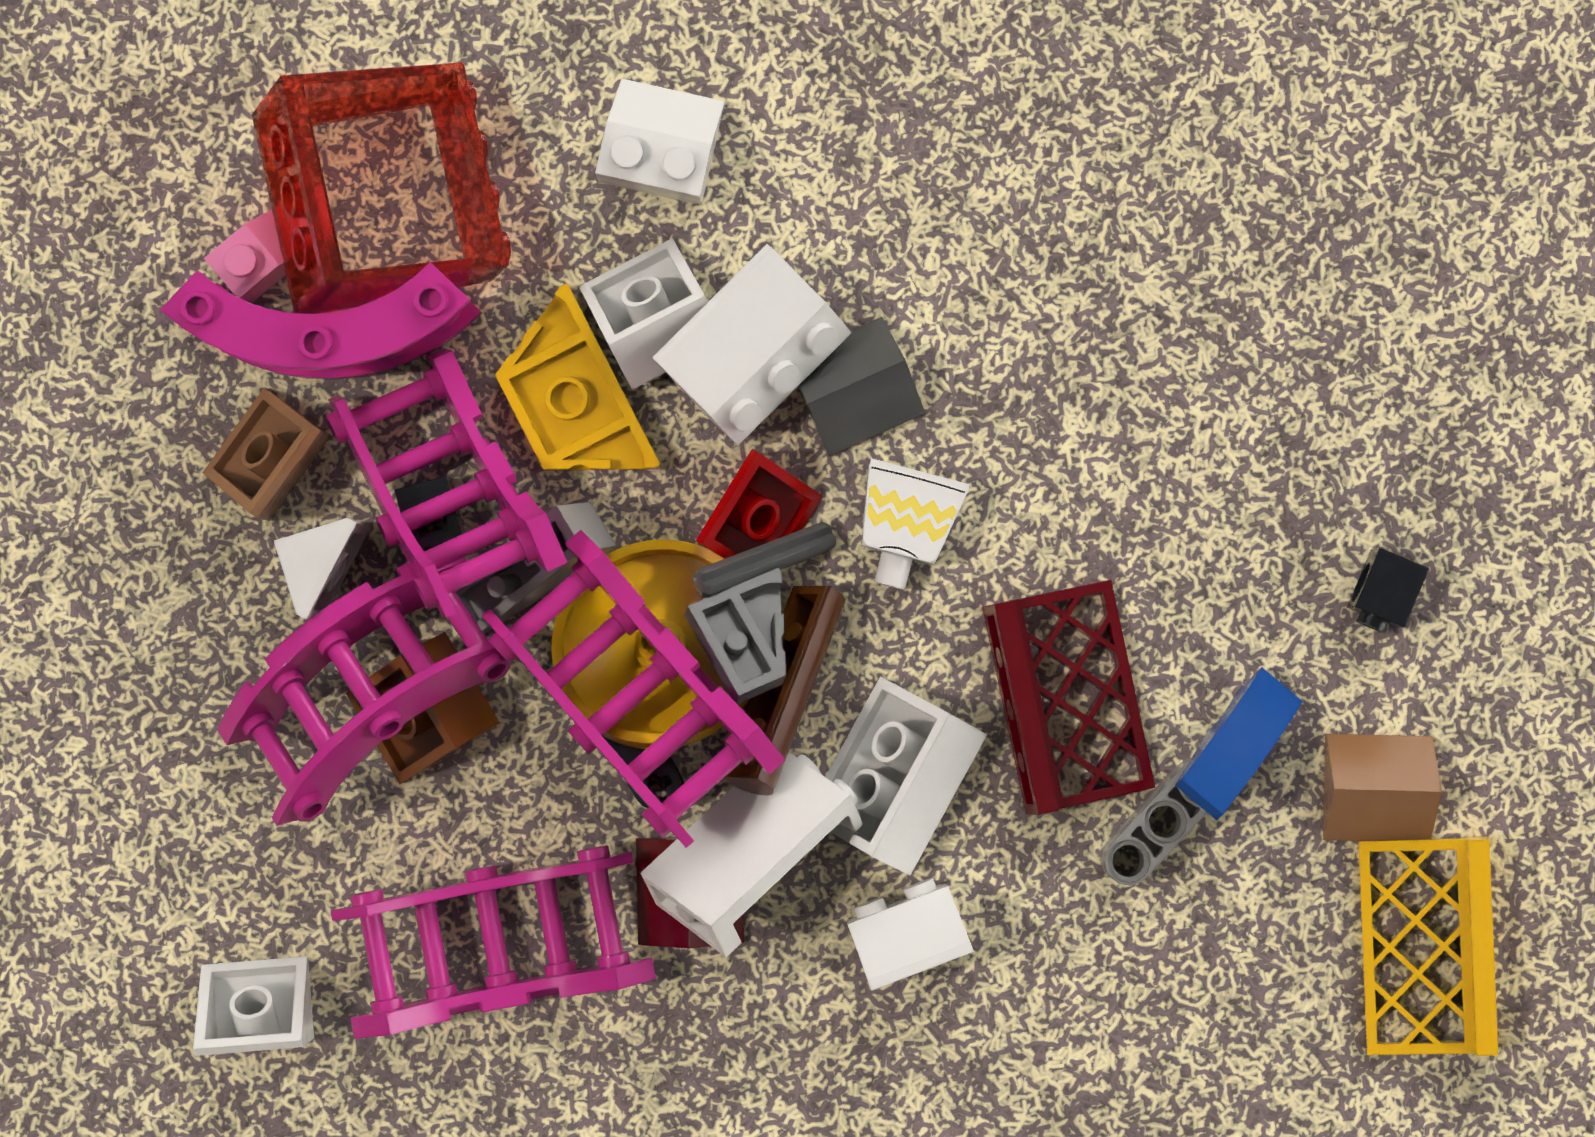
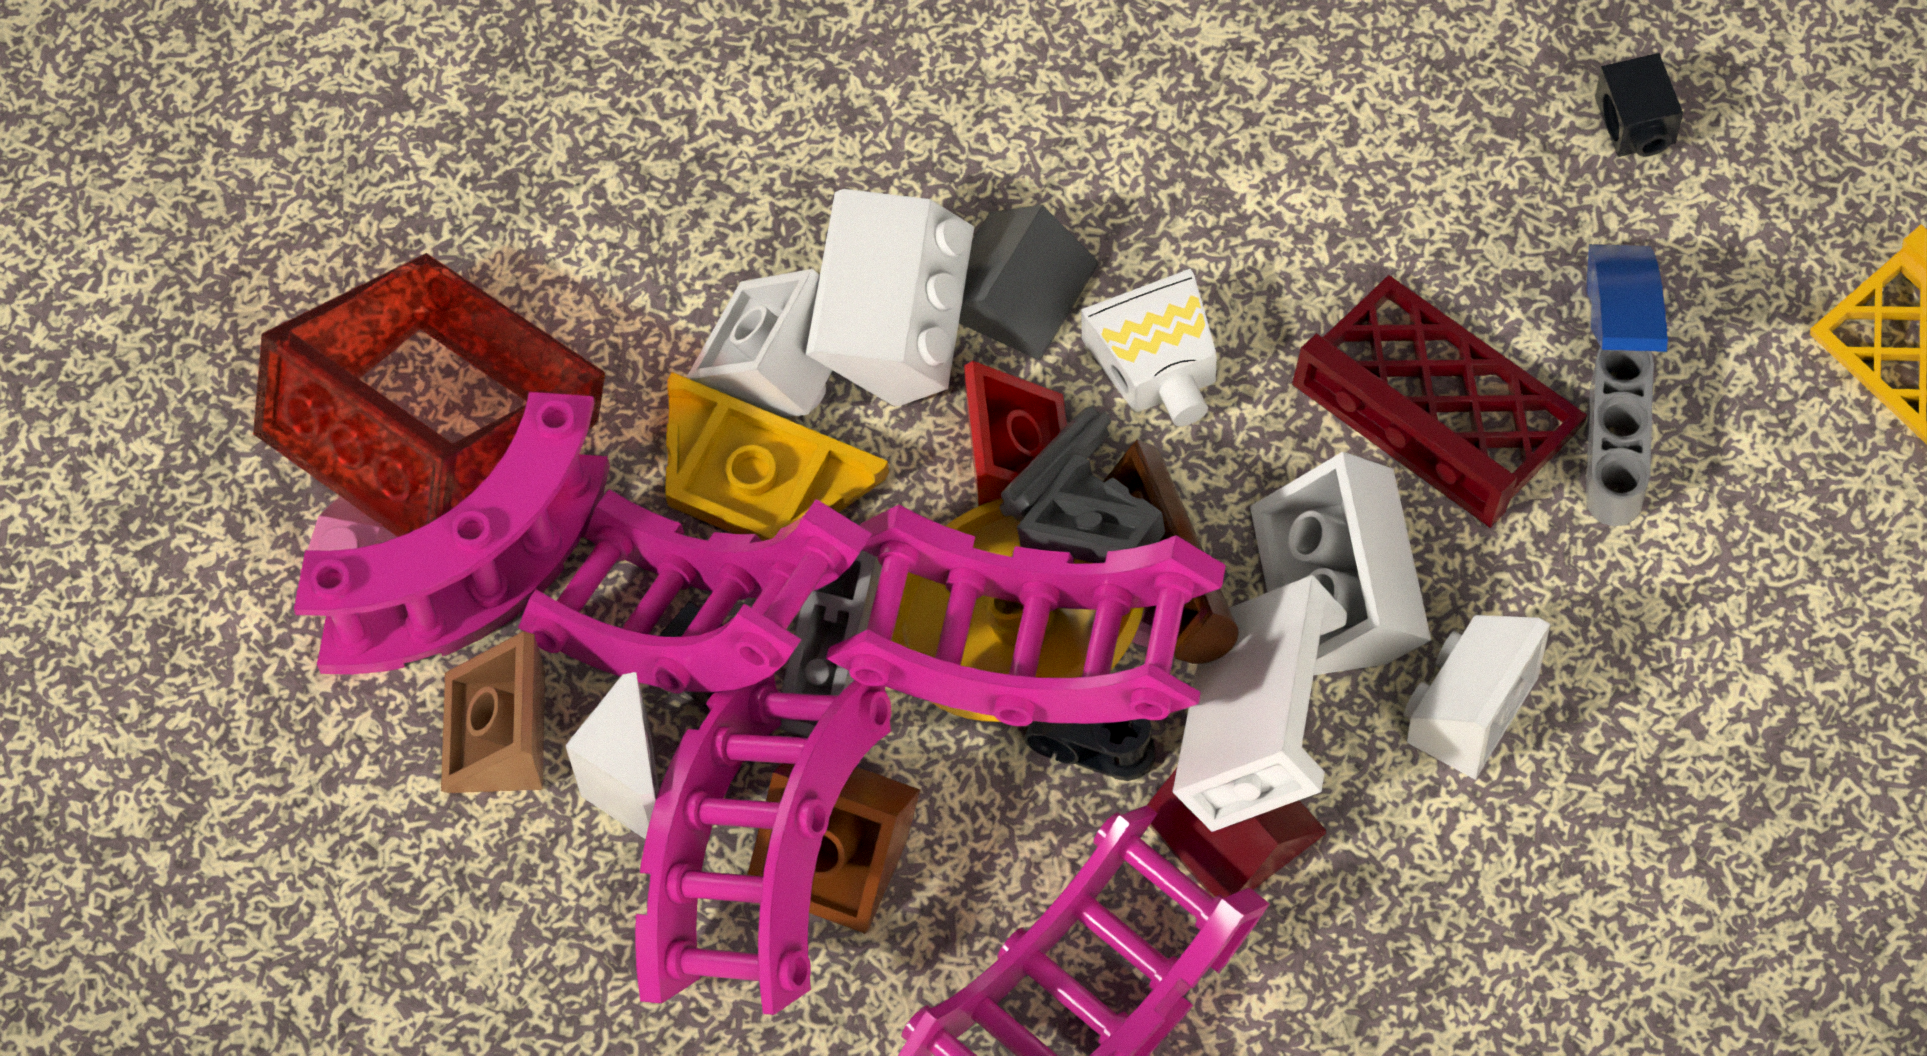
camera: 35 degrees left, 25 degrees down
(659, 141) = (668, 211): white slope -> none
(1380, 787) = (1787, 272): medium nougat slope -> none

